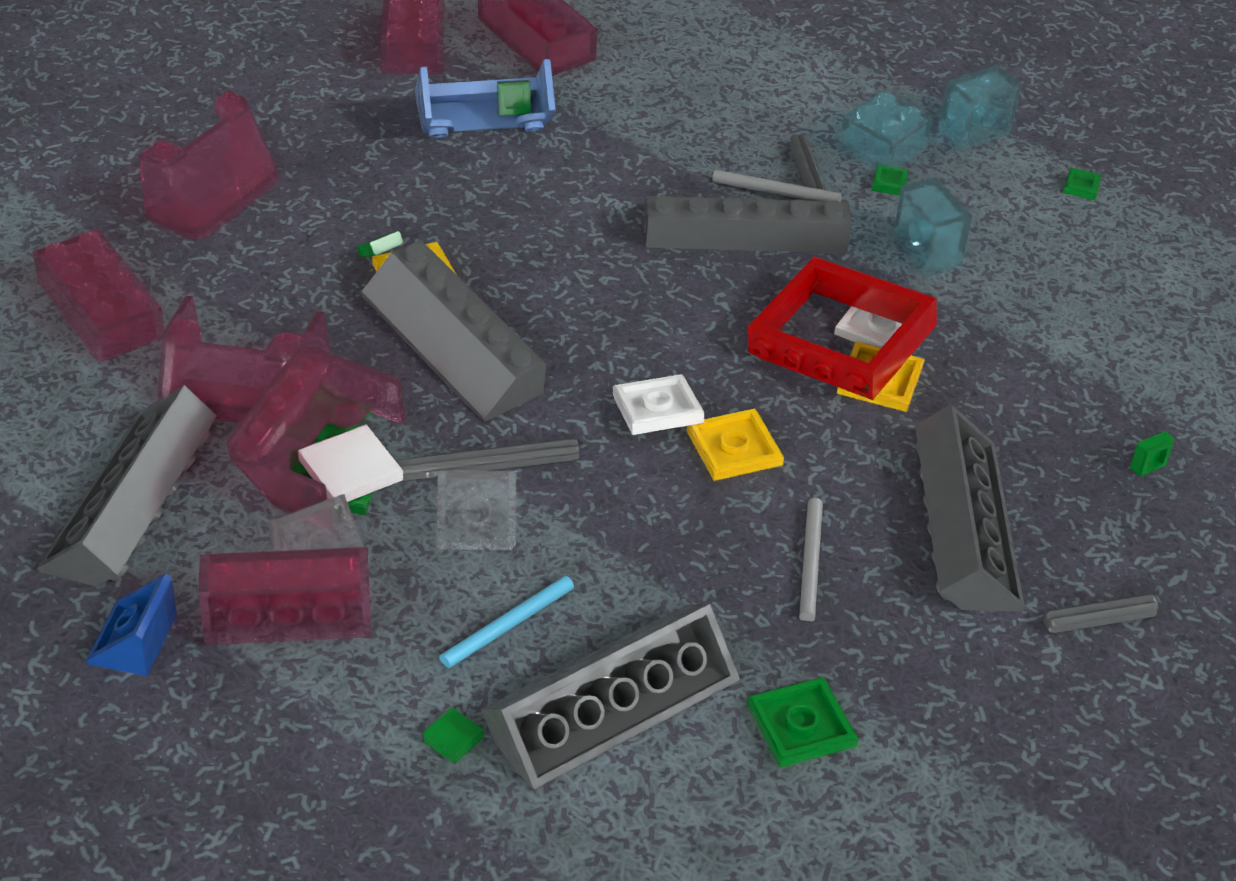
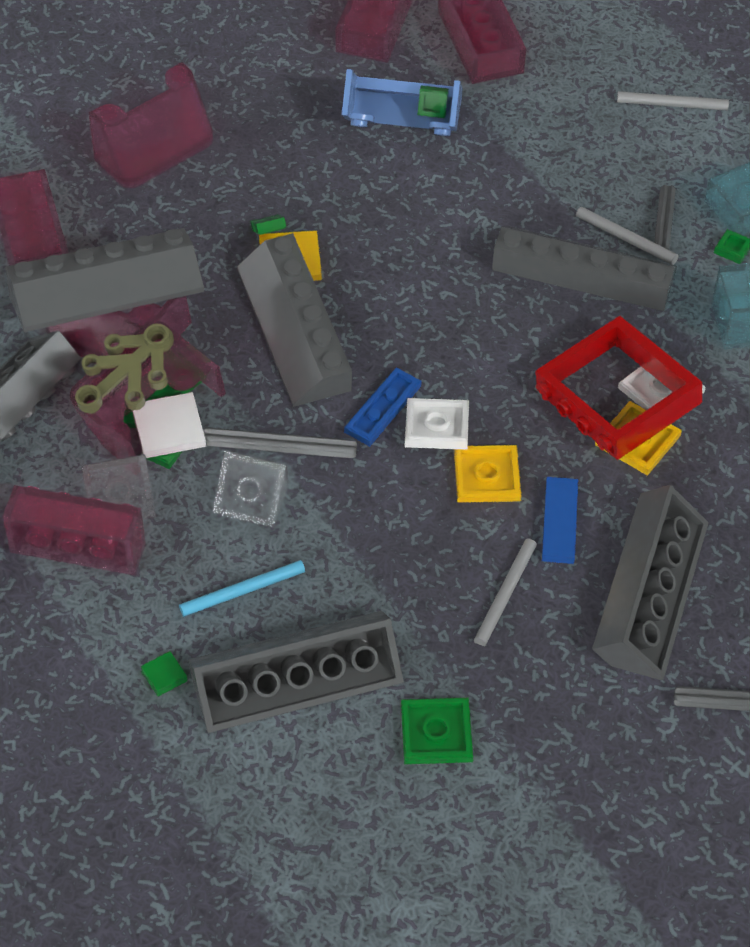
camera: 20 degrees right, 10 degrees up
(224, 315) = (104, 279): none -> dark grey slope
(315, 365) = (126, 365): none -> olive plant
(587, 401) = (382, 407): none -> blue tile
(762, 60) = (672, 100): none -> light grey bar
(837, 474) = (560, 520): none -> blue tile

